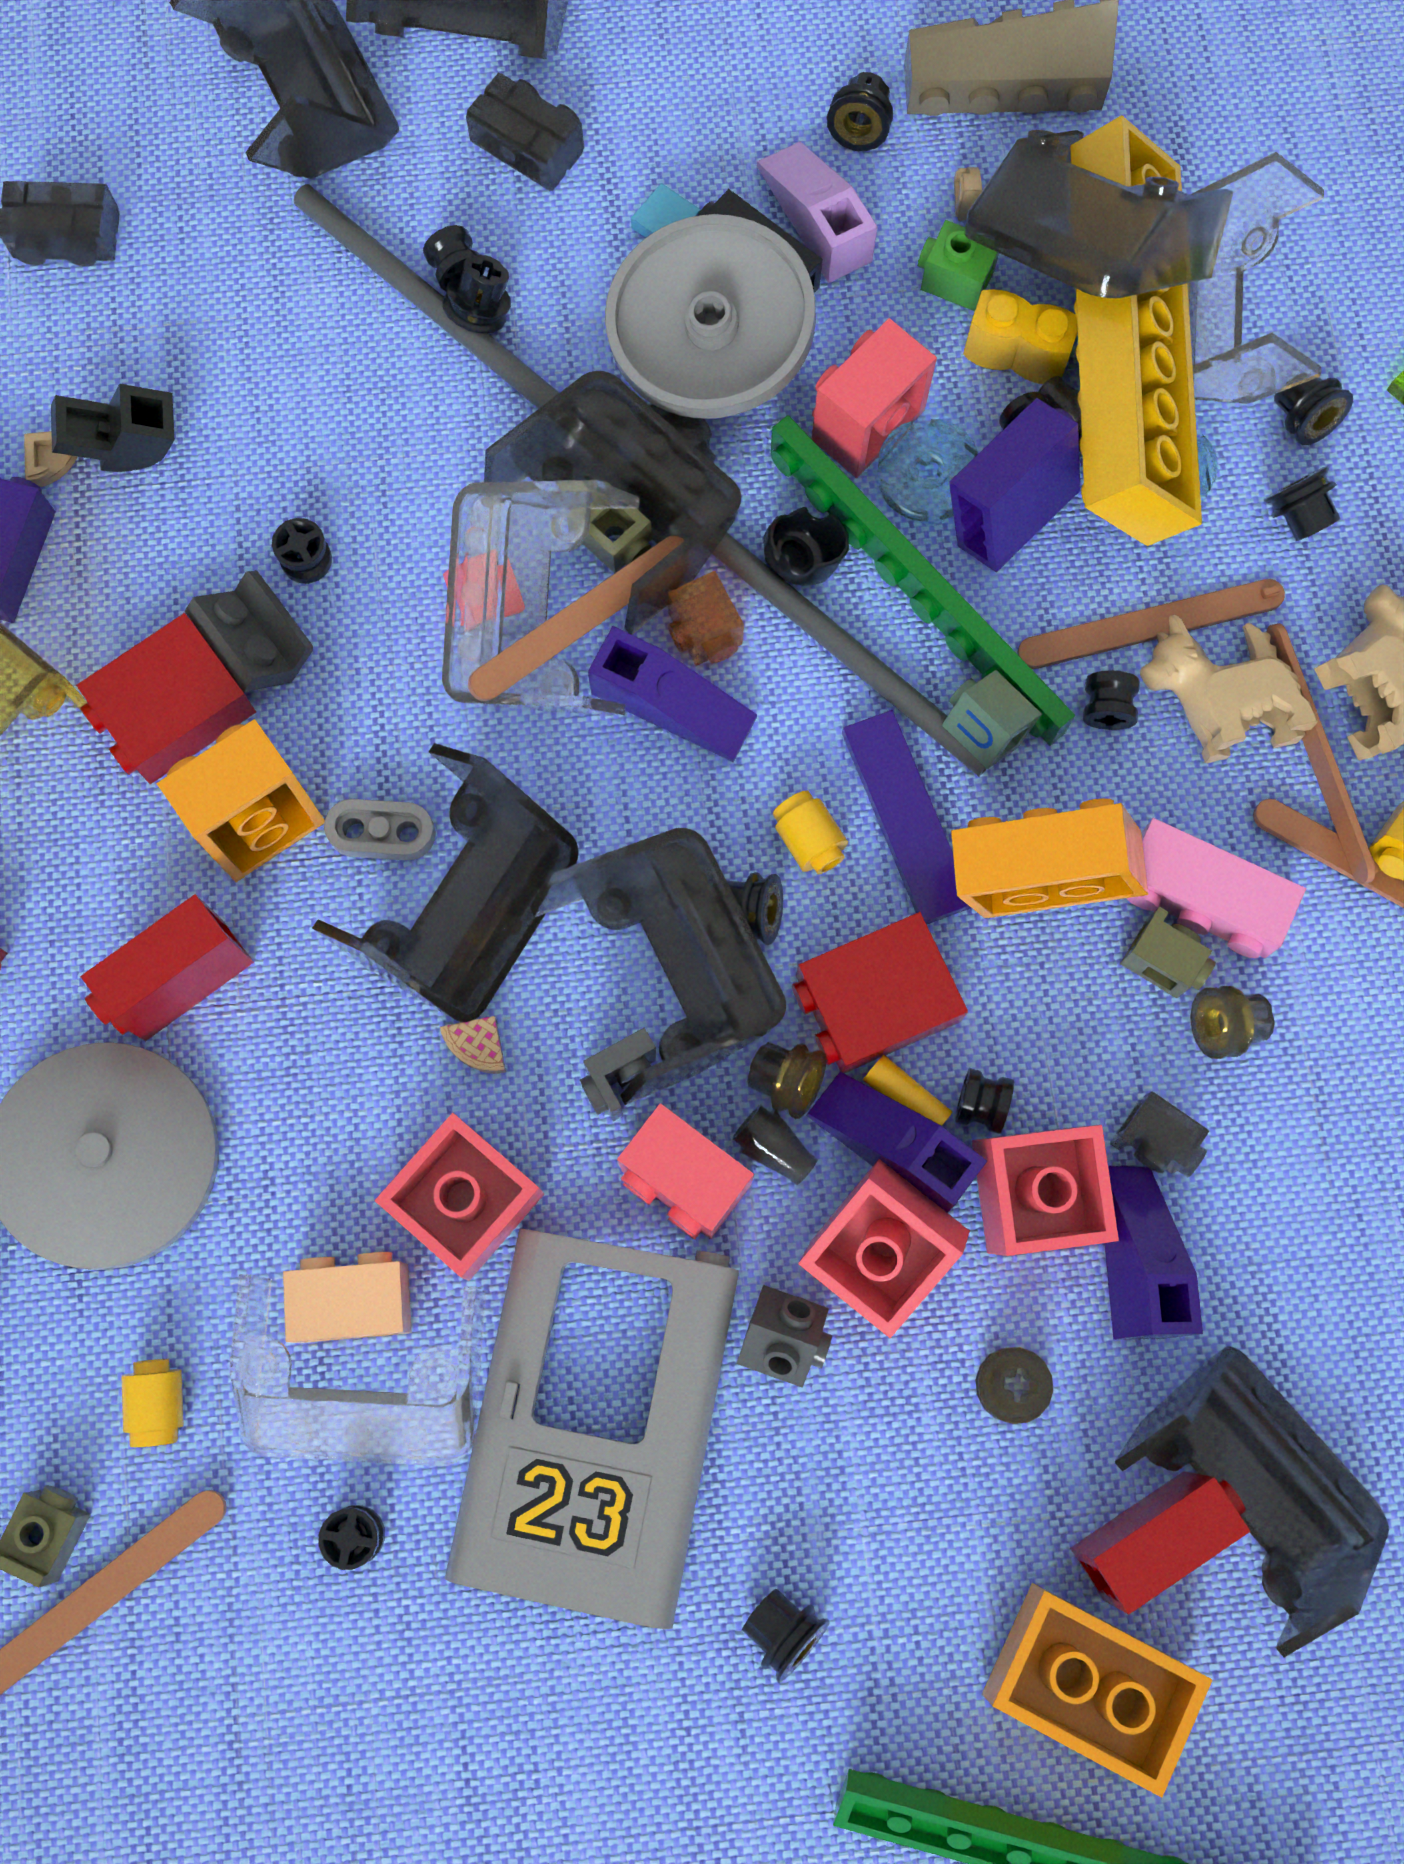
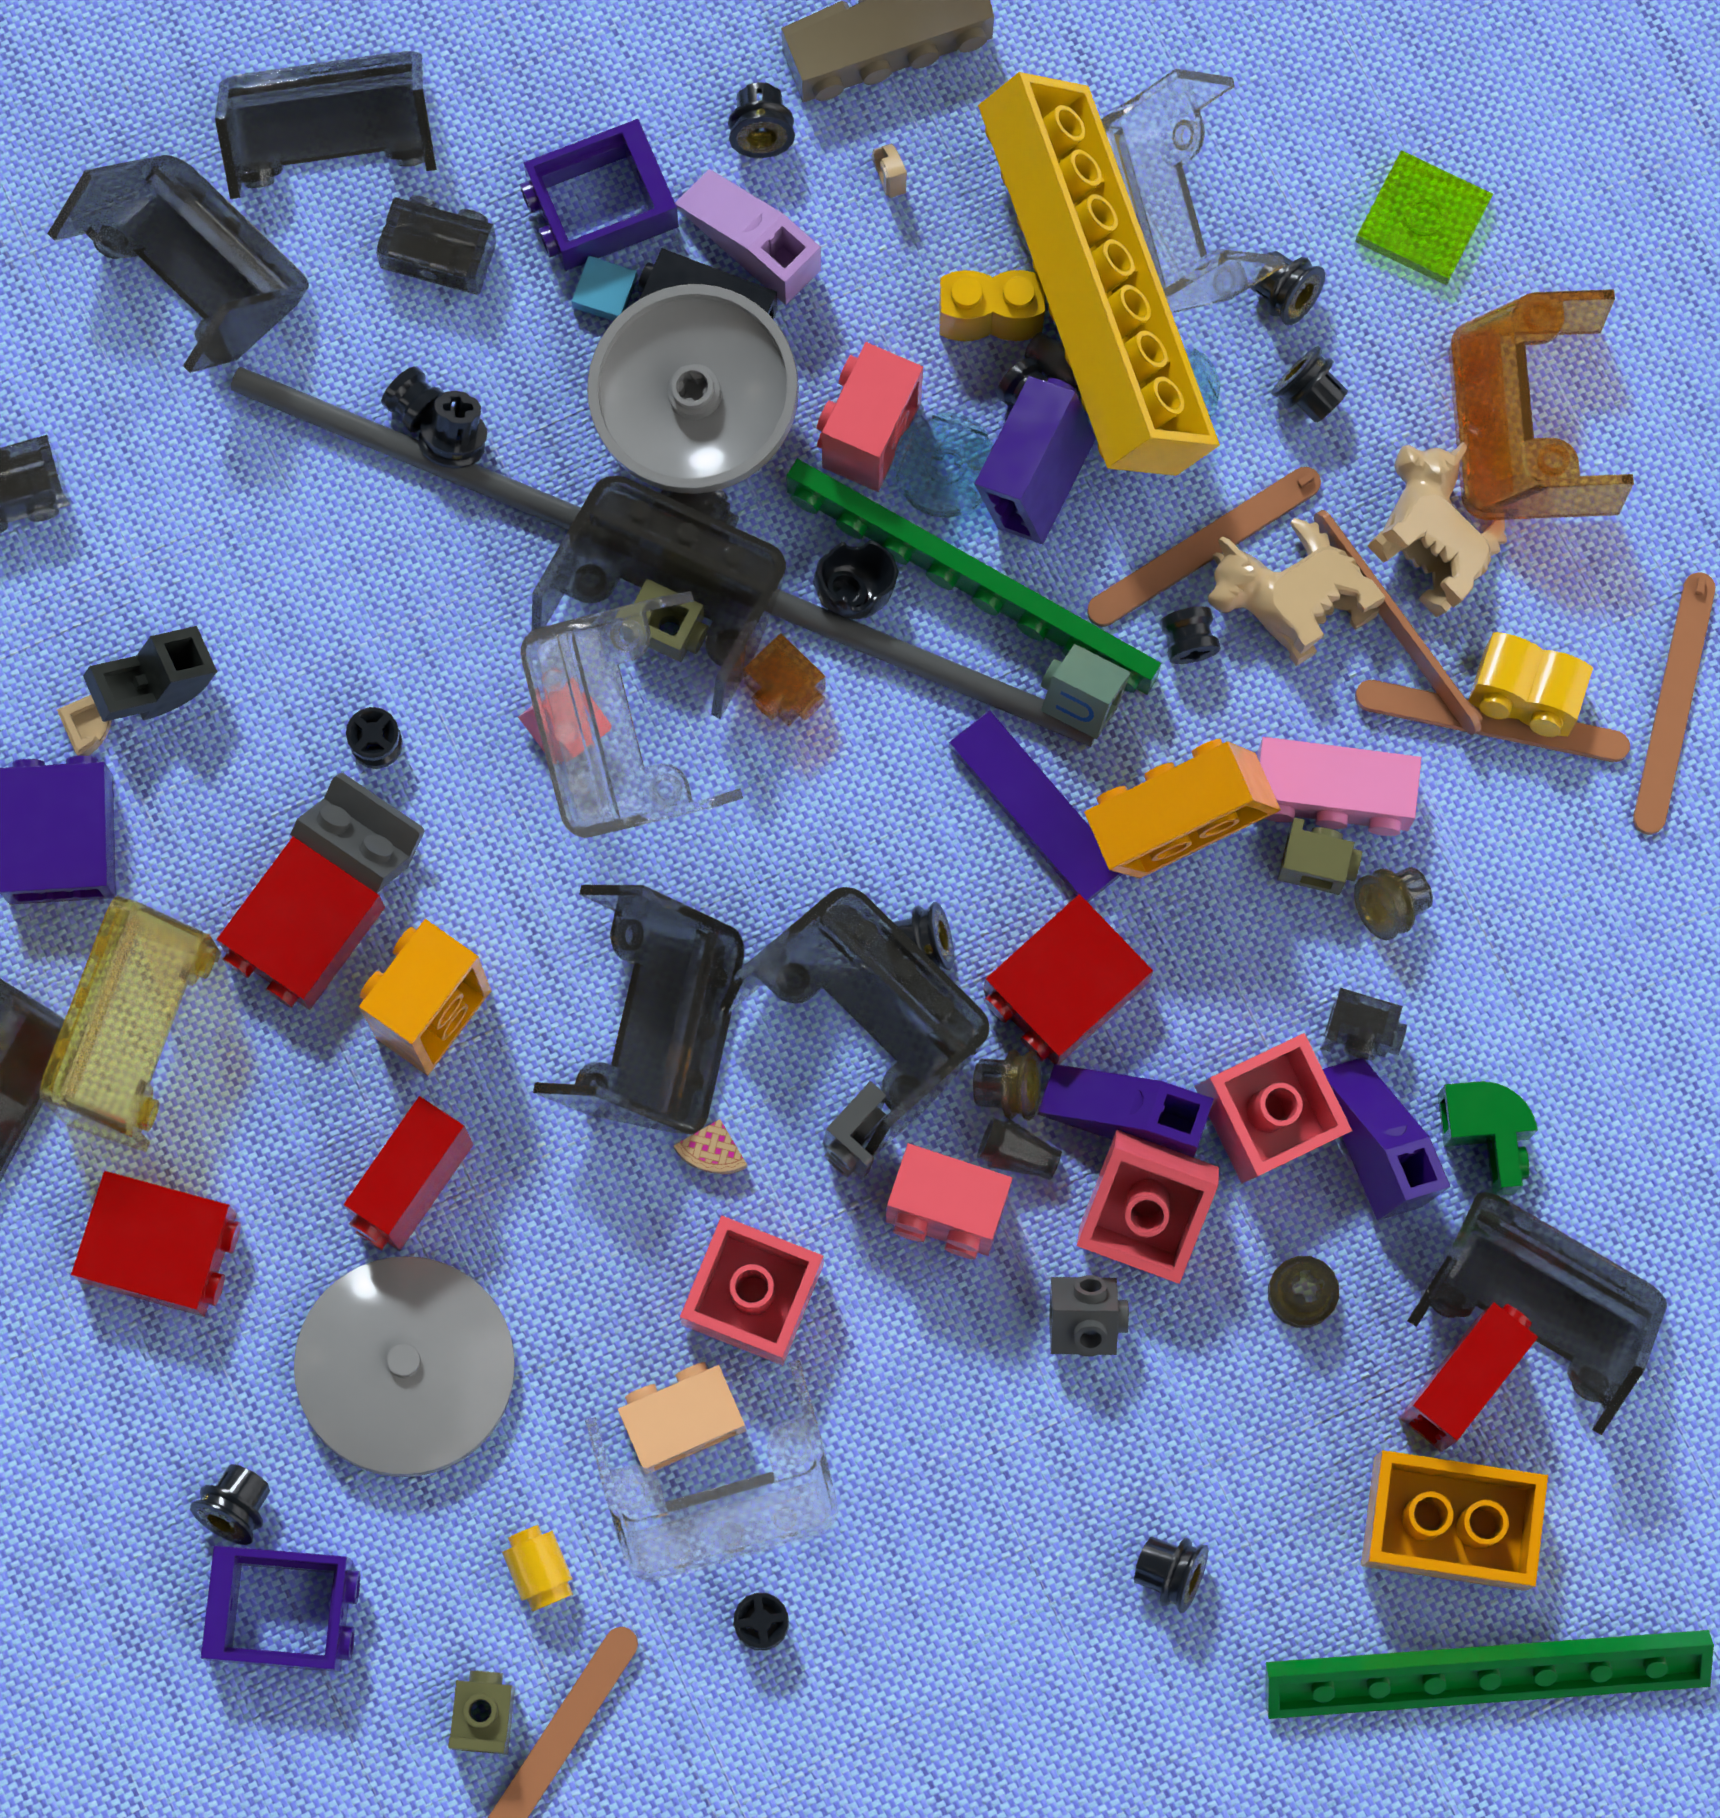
camera: 20 degrees left, 0 degrees up
(382, 829) = (548, 976): light grey plate -> none
(564, 627) = (668, 723): nougat piece -> none
(580, 1513) = (953, 1529): light grey piece -> none
(668, 694) = (778, 765): dark purple slope -> none
(687, 96) = (585, 156): none -> dark purple window
(810, 832) = (952, 852): yellow brick -> none
(899, 1086) = (1113, 1059): yellow axle -> none
(956, 266) = (907, 250): bright green brick -> none
(984, 1101) = (1194, 1047): black wheel -> none
(1092, 228) = (1022, 203): clear smoke windscreen -> none
(1268, 1274) = (1493, 1116): none -> green brick

